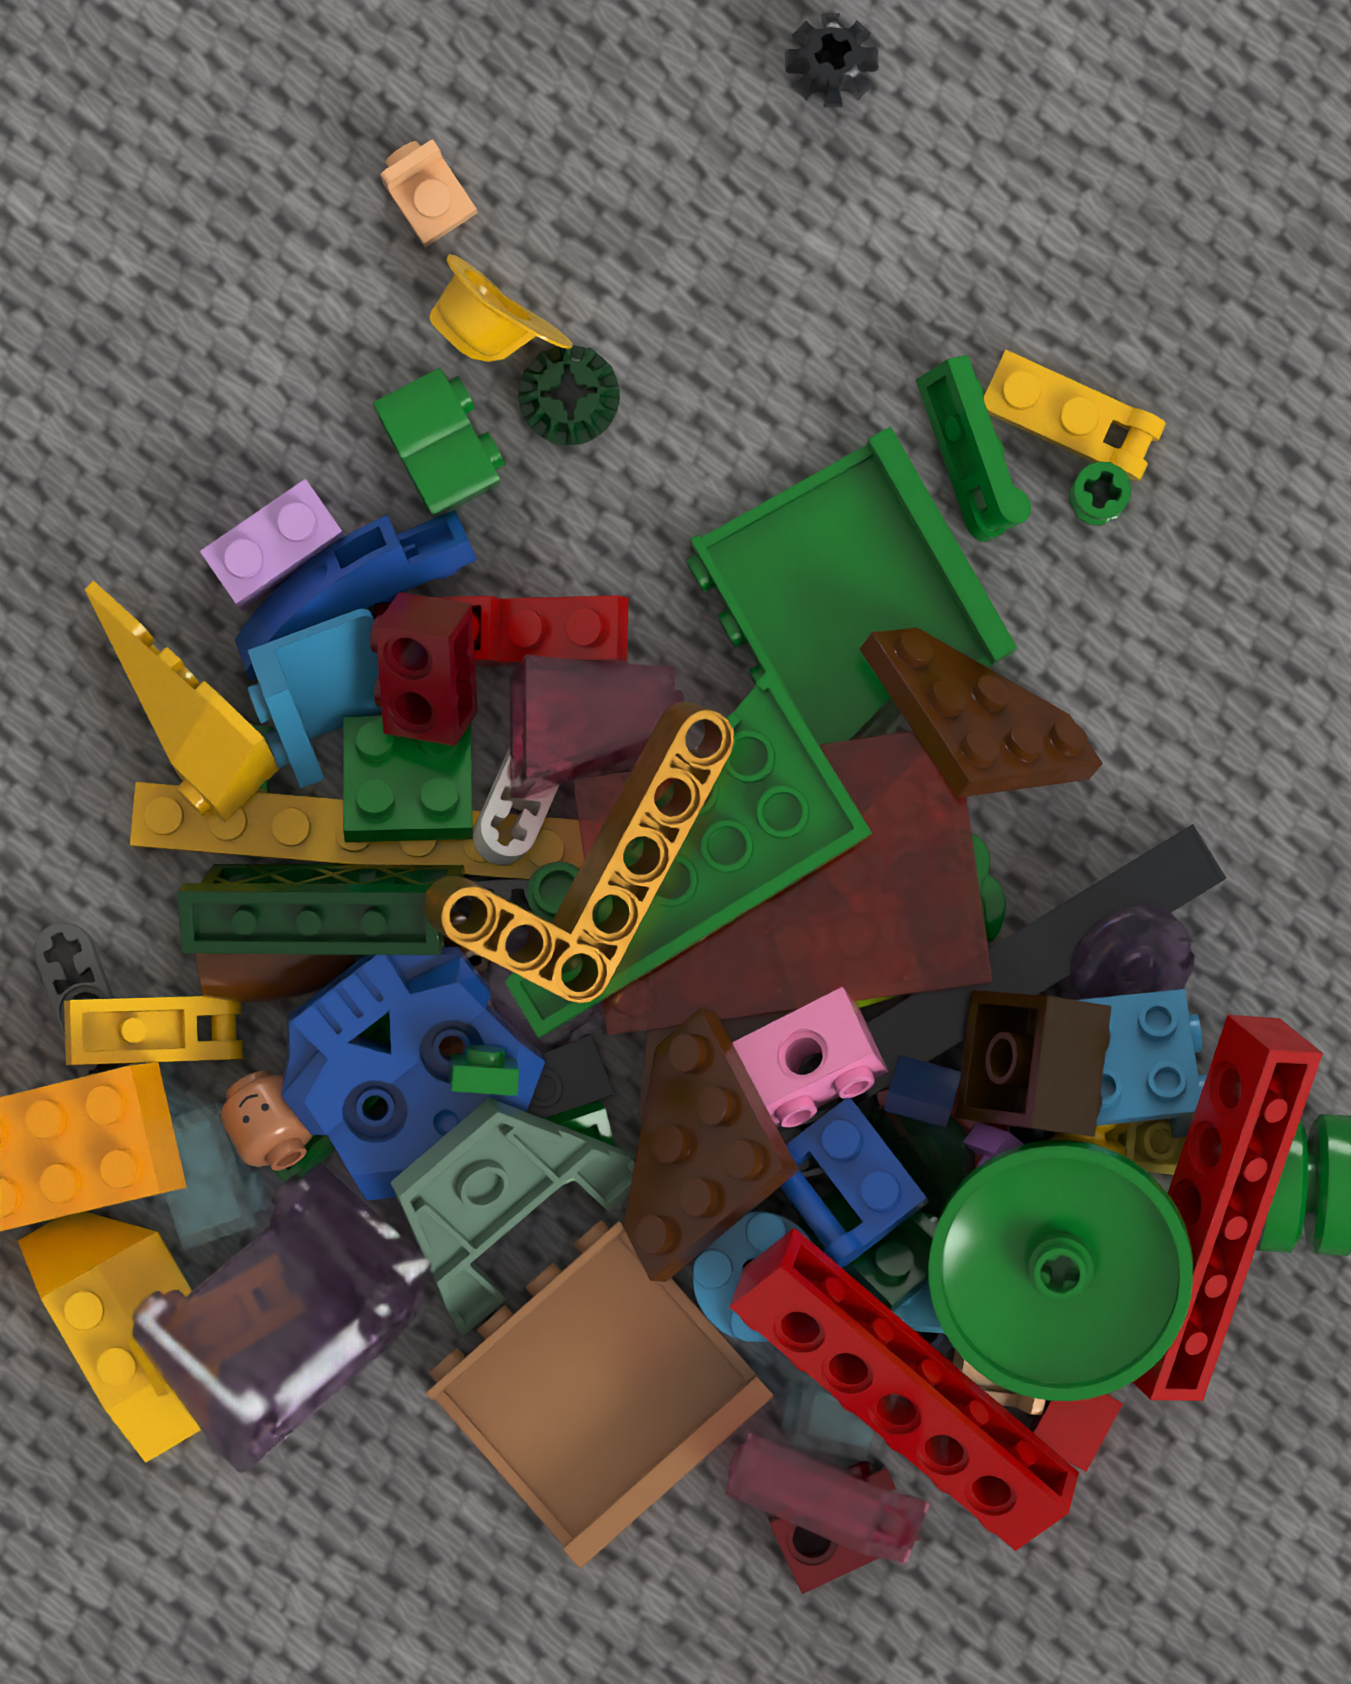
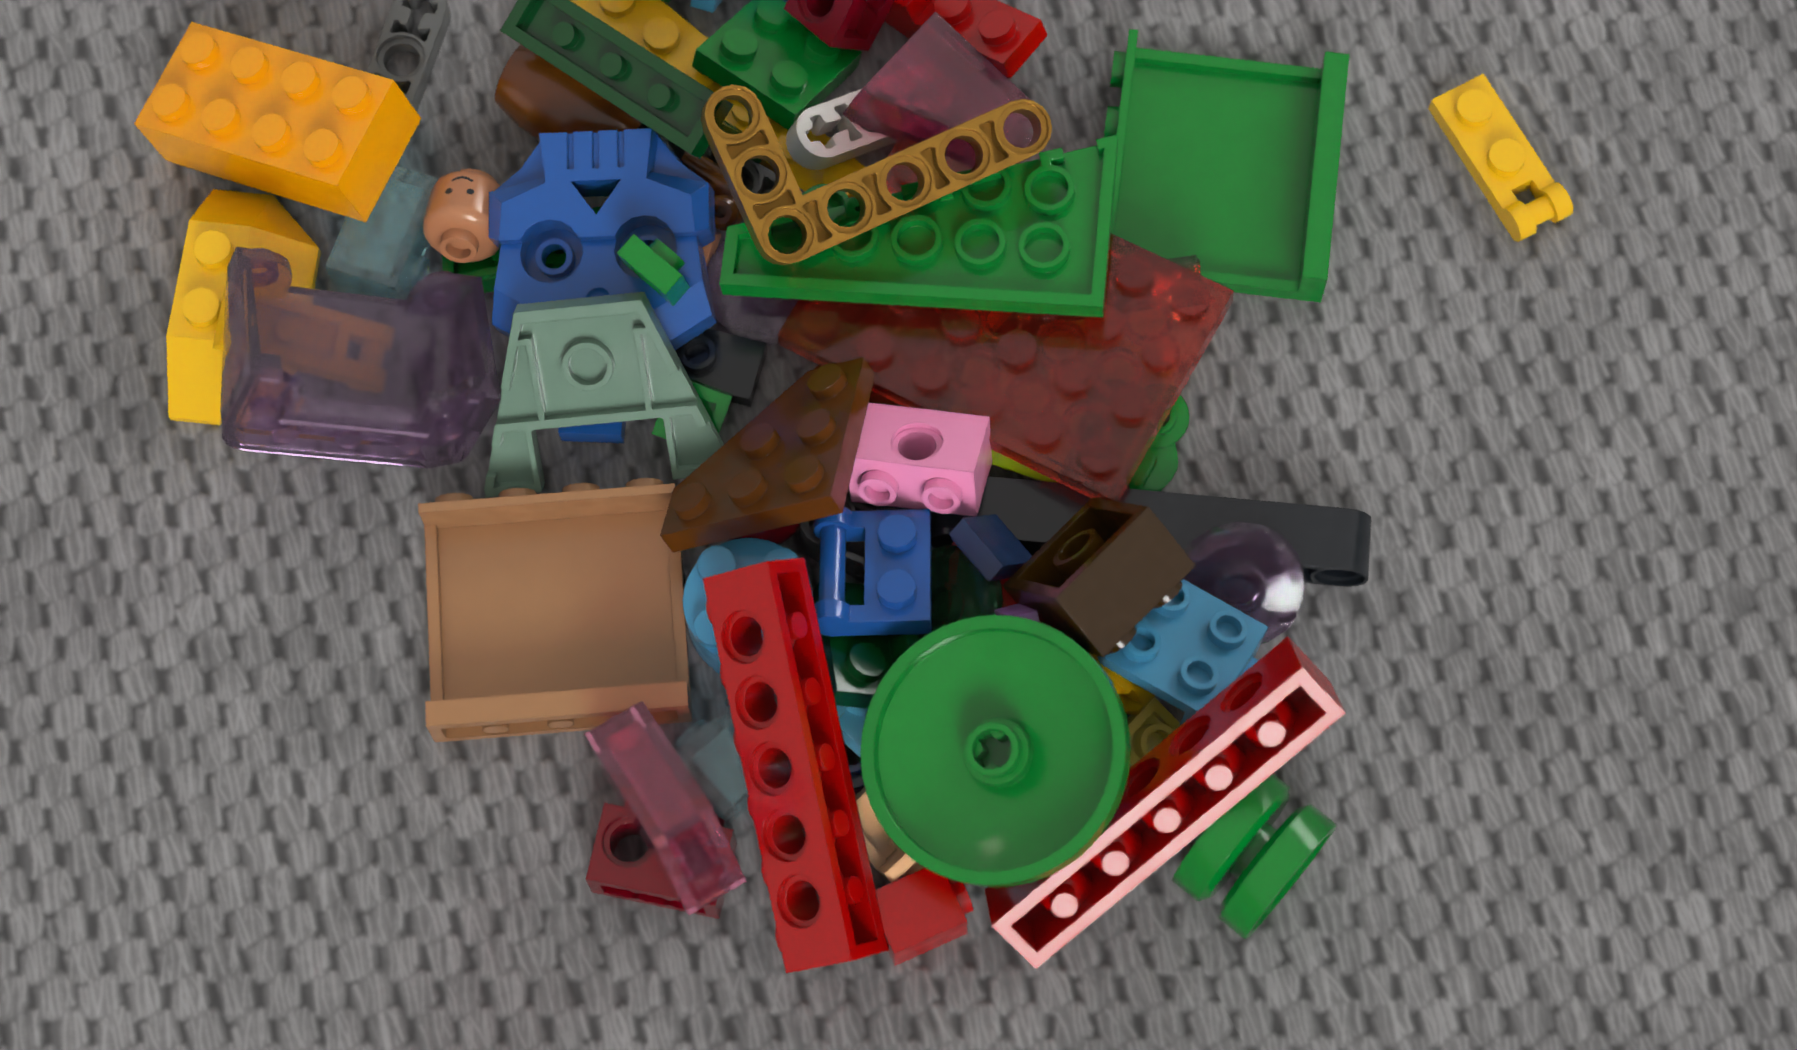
camera: 40 degrees right, 15 degrees down
(149, 1030) = (442, 99): yellow plate -> none
(971, 450) = (1401, 123): green plate -> none
(974, 721) = (1251, 308): reddish brown plate -> none
(1118, 486) = (1480, 205): green bush -> none

